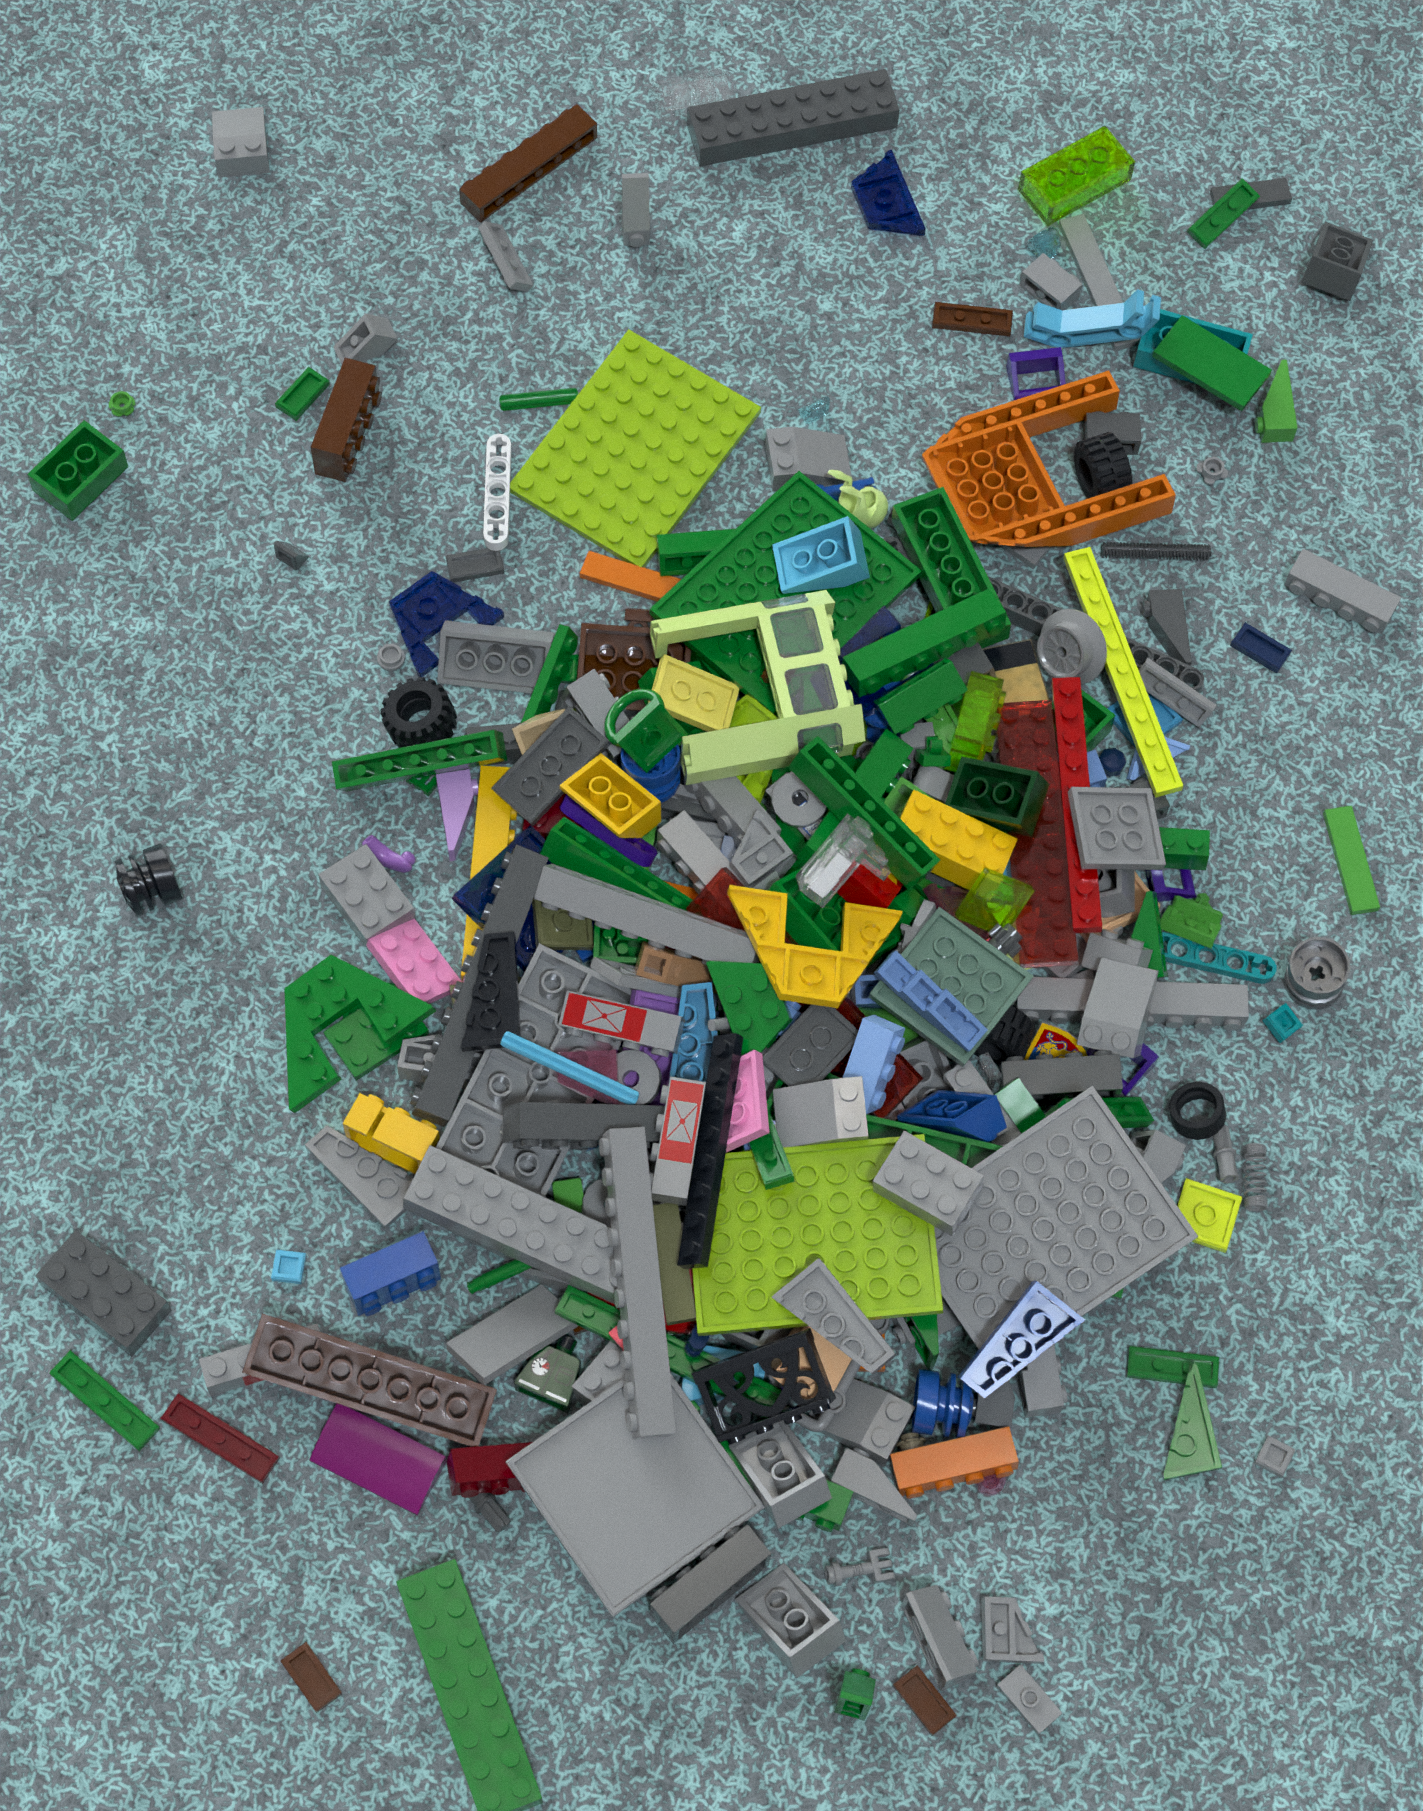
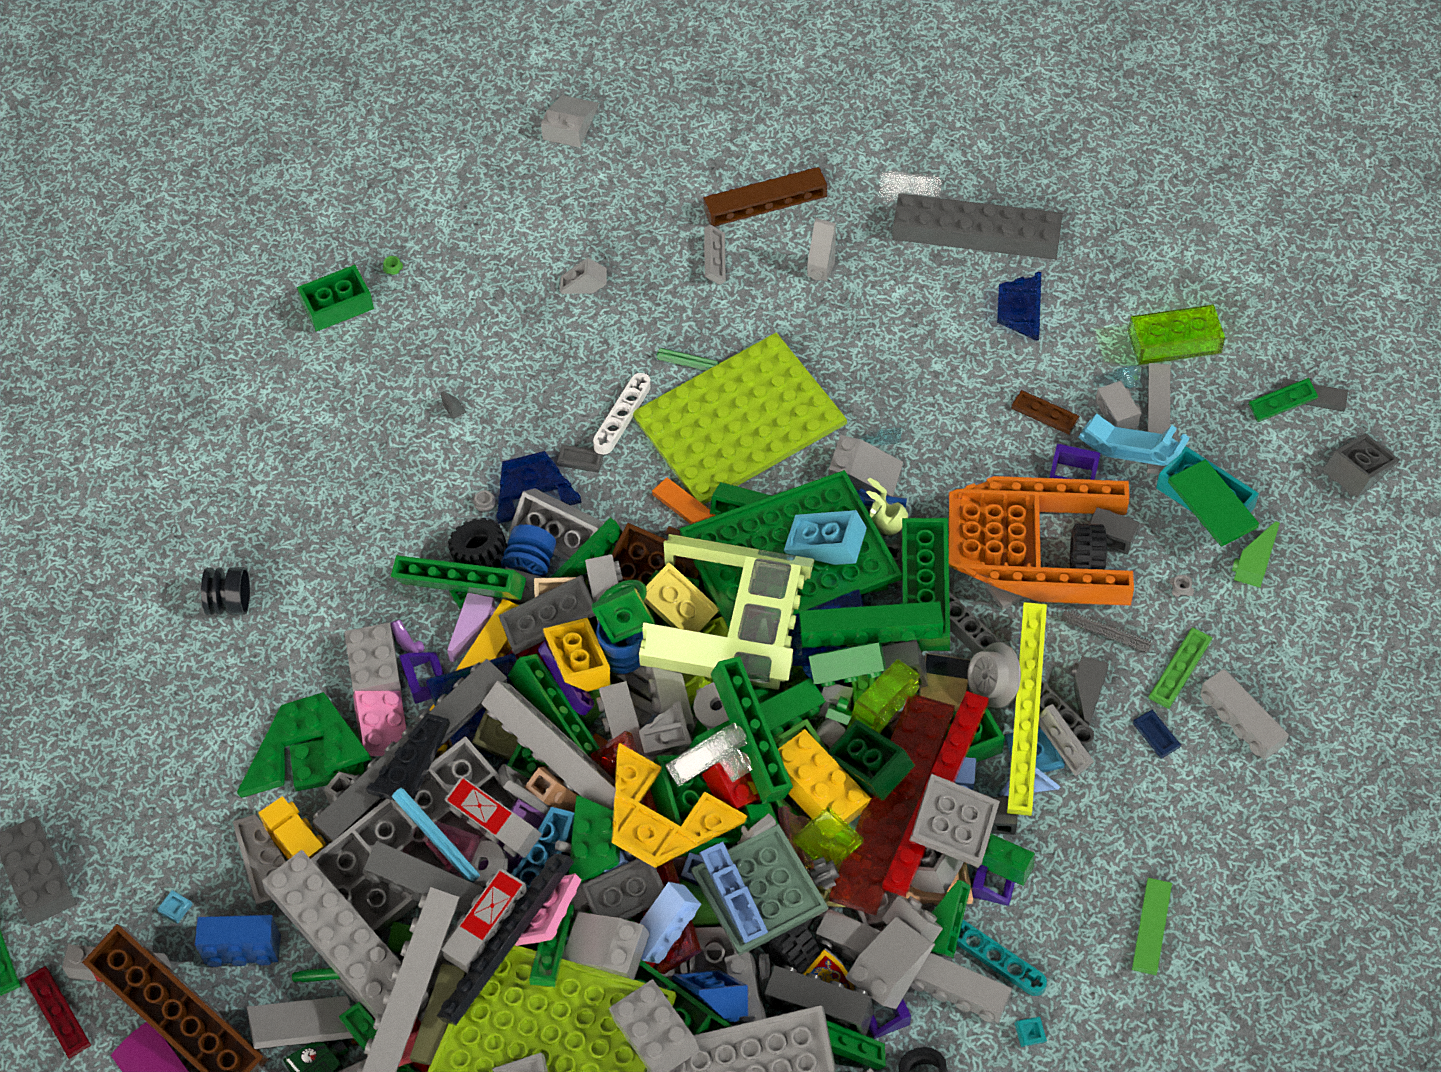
camera: 30 degrees right, 10 degrees down
(302, 393) = (521, 300): green tile -> none
(345, 420) = (537, 326): reddish brown brick -> none
(420, 898) = (411, 660): none -> dark purple tile
(481, 698) = (529, 550): none -> blue wheel
(1020, 1105) = (771, 1000): tile -> none
(1112, 761) = (990, 776): dark blue tile -> none
(1193, 920) = (995, 921): bright green slope -> none
(1252, 564) = (1180, 668): none -> bright green tile
(1321, 958) = (1074, 988): flat silver wheel -> none

